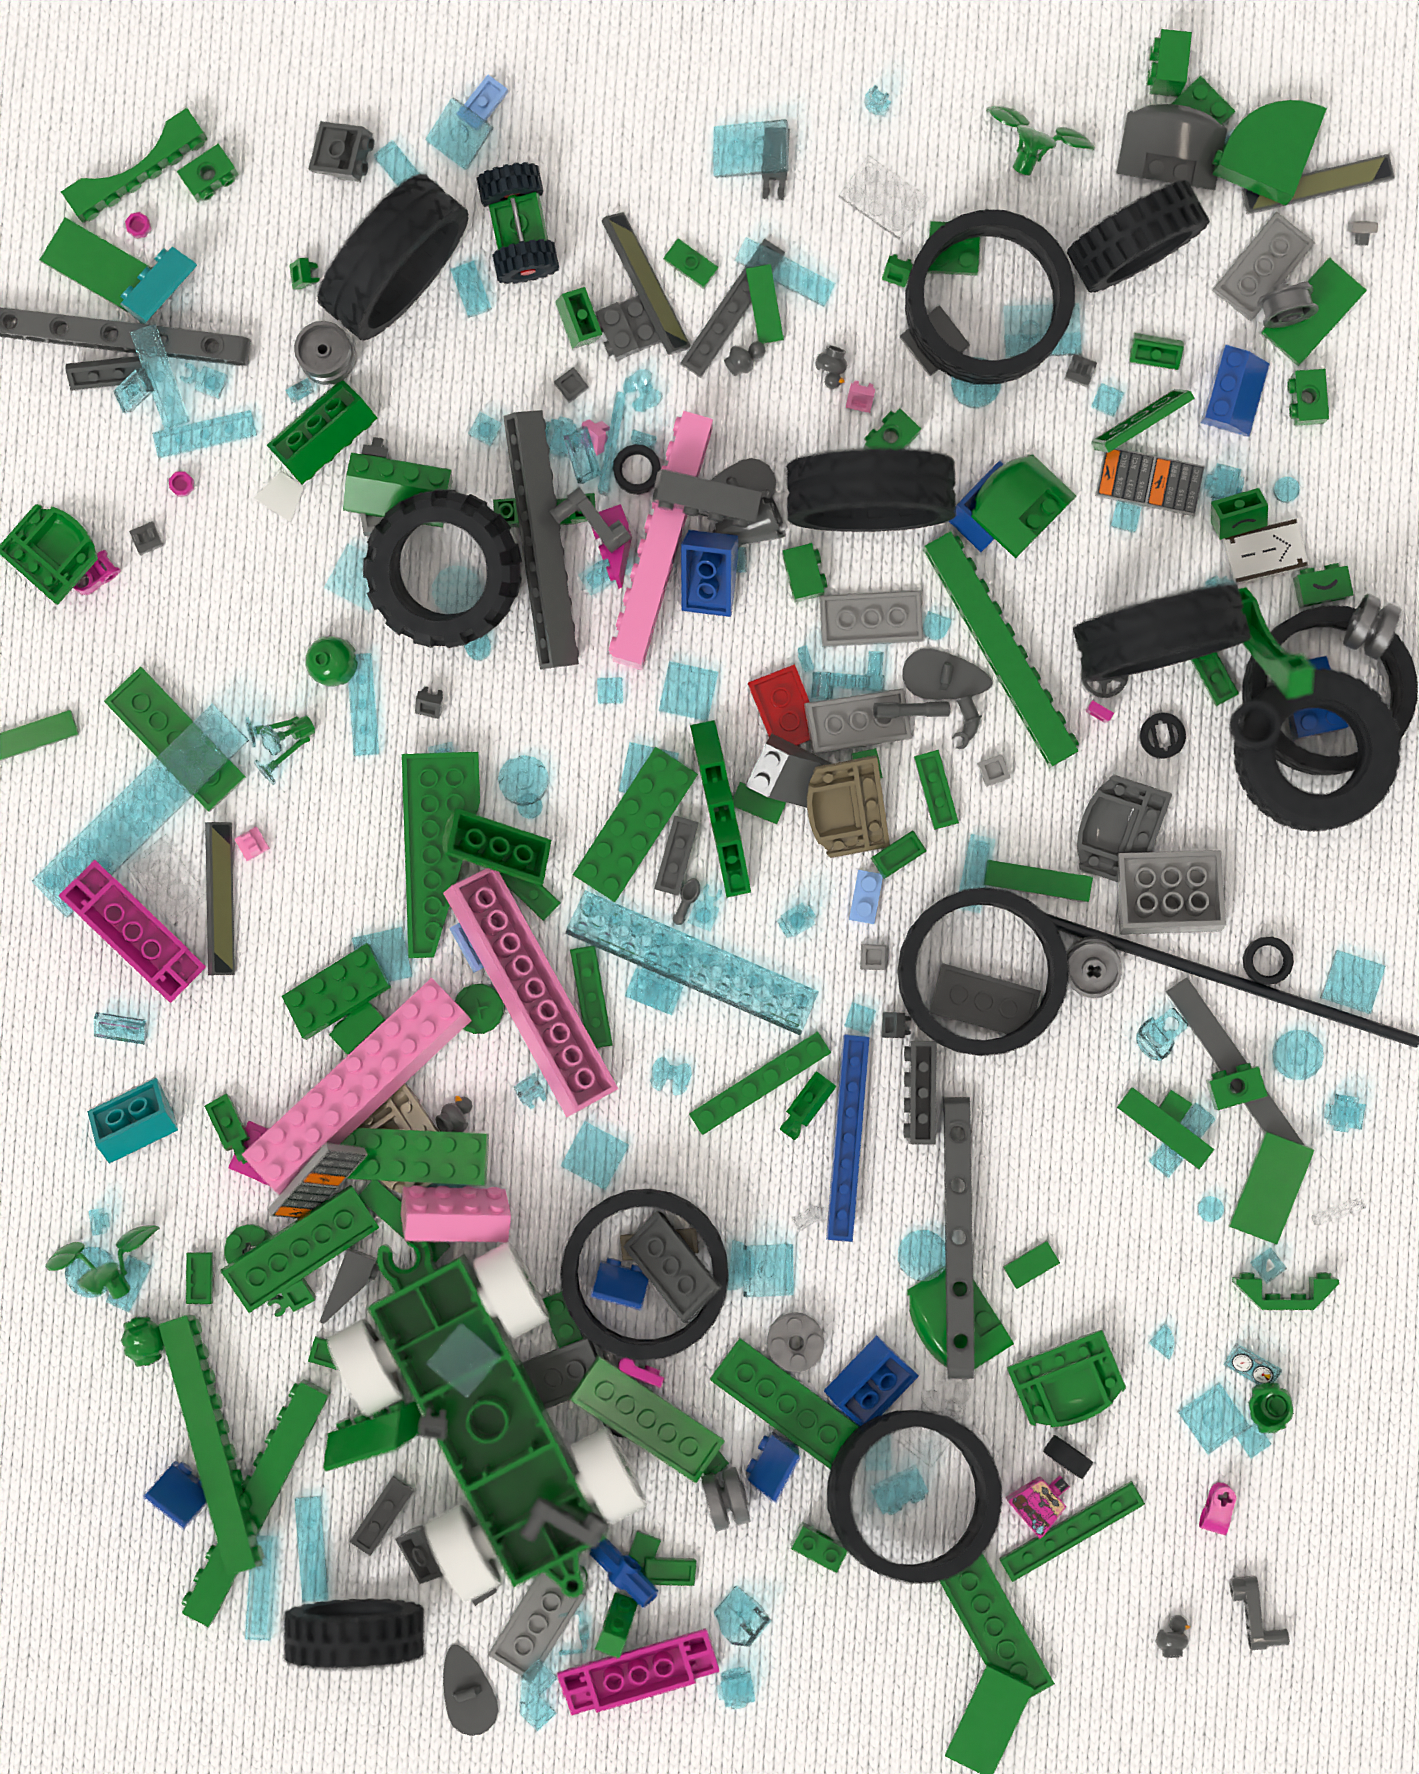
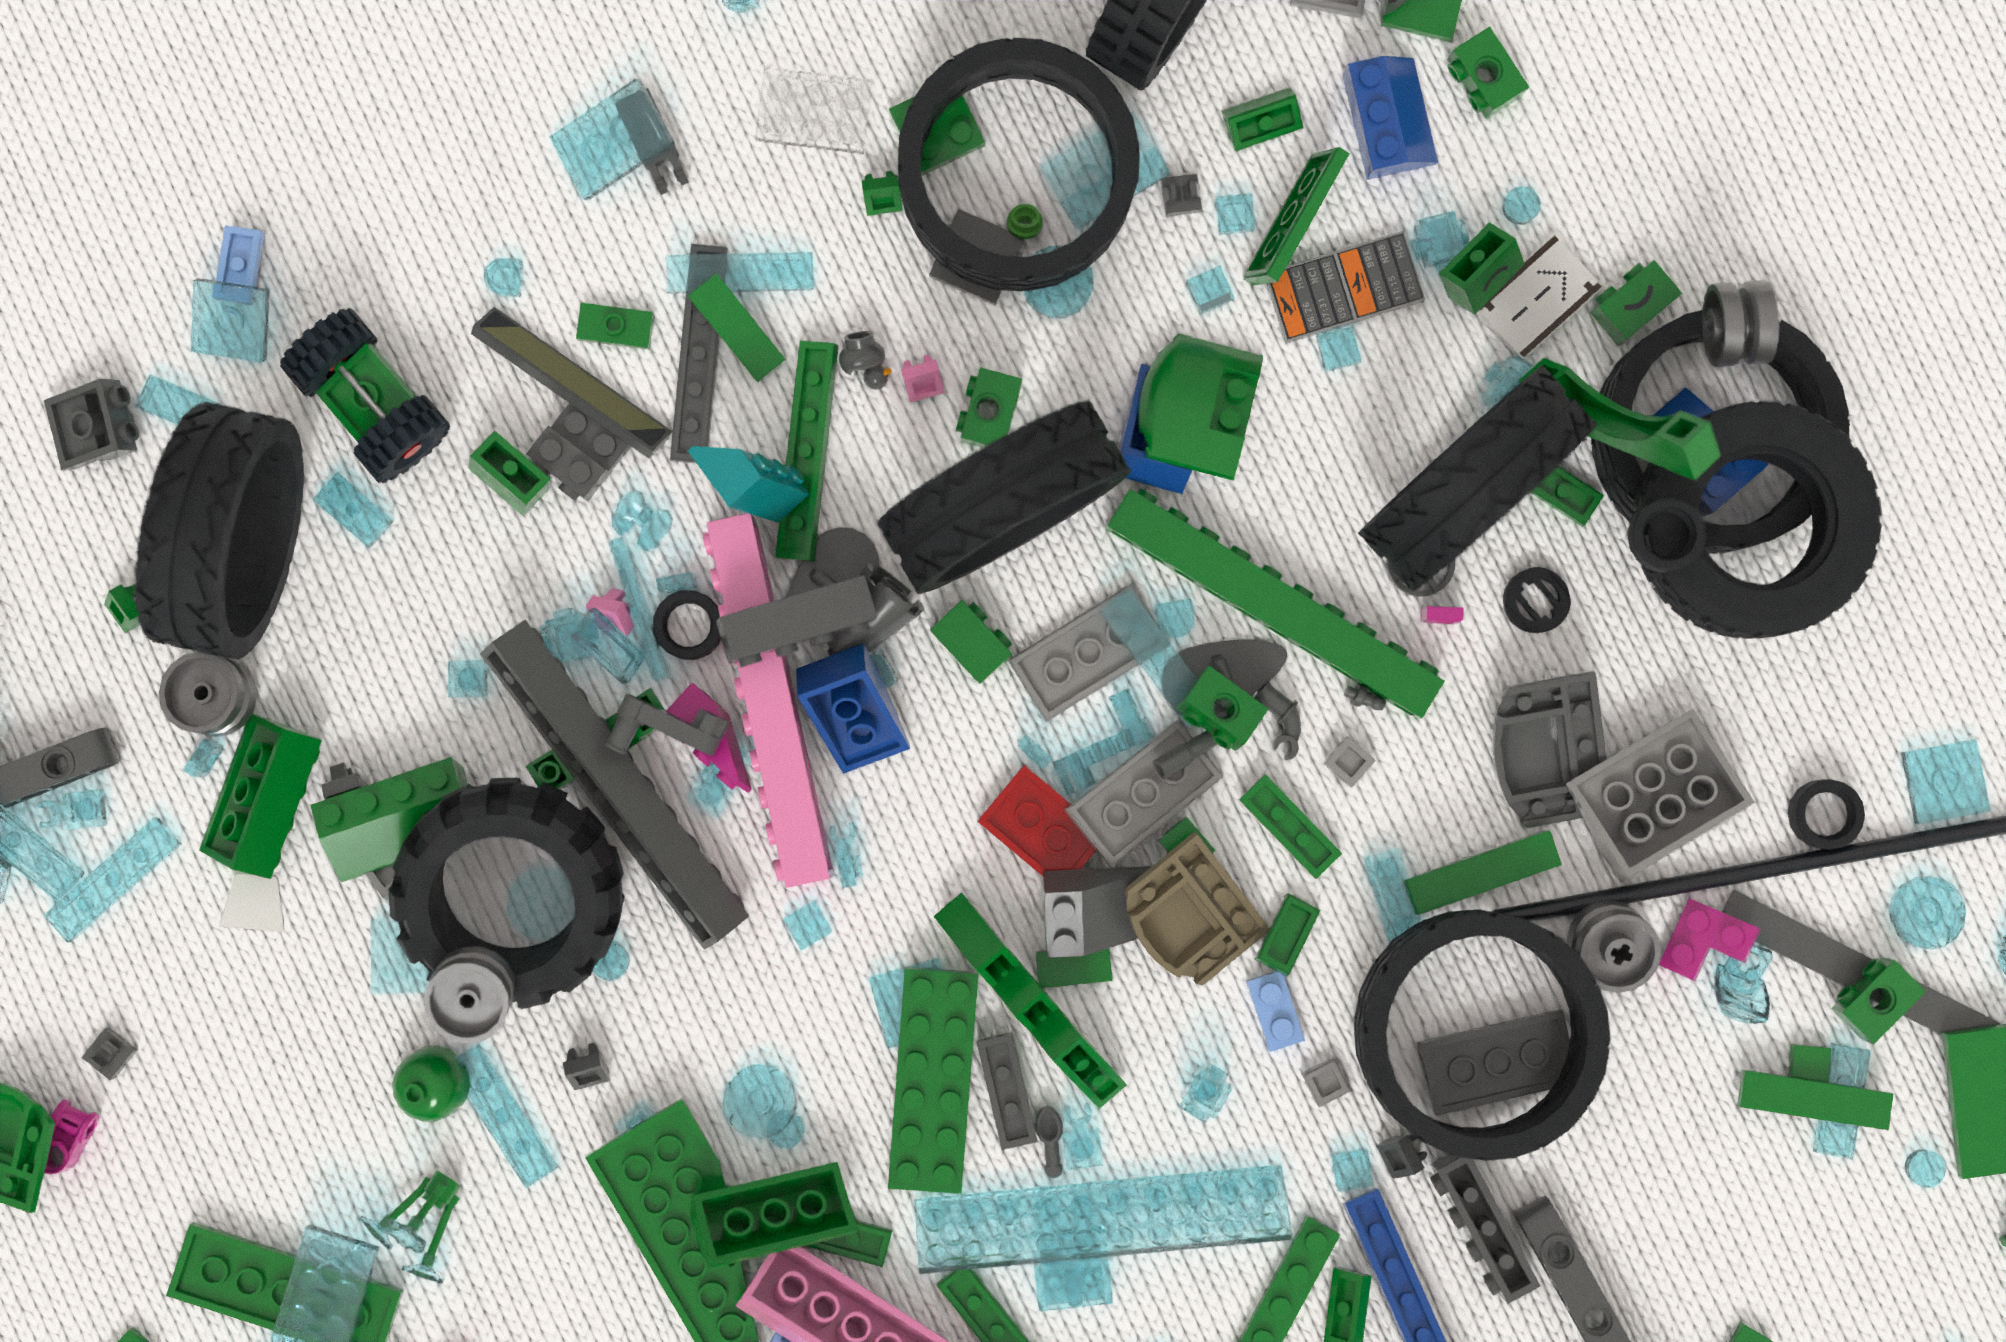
camera: 30 degrees left, 0 degrees up
(181, 483) = (116, 960): dark pink tile -> none
(392, 628) = (466, 1016): none -> flat silver wheel
(571, 385) = (547, 562): dark grey tile -> none
(639, 197) = (504, 277): none -> clear light blue tile
(655, 667) = (848, 864): none -> clear light blue plate
(688, 691) = (907, 872): clear light blue tile -> none
(724, 400) = (751, 481): none -> teal slope
(742, 360) = (746, 414): dark grey animal -> none
(766, 402) = (808, 446): none -> green plate
(911, 644) = (1150, 648): none -> clear light blue tile
(936, 680) = (1242, 709): none -> green brick
(979, 331) = (1024, 214): none -> bright green plate
(1022, 735) = (1361, 696): none -> dark grey piece
(1066, 438) = (1210, 290): none -> clear light blue tile
(1155, 990) = (1706, 929): none -> dark pink plate

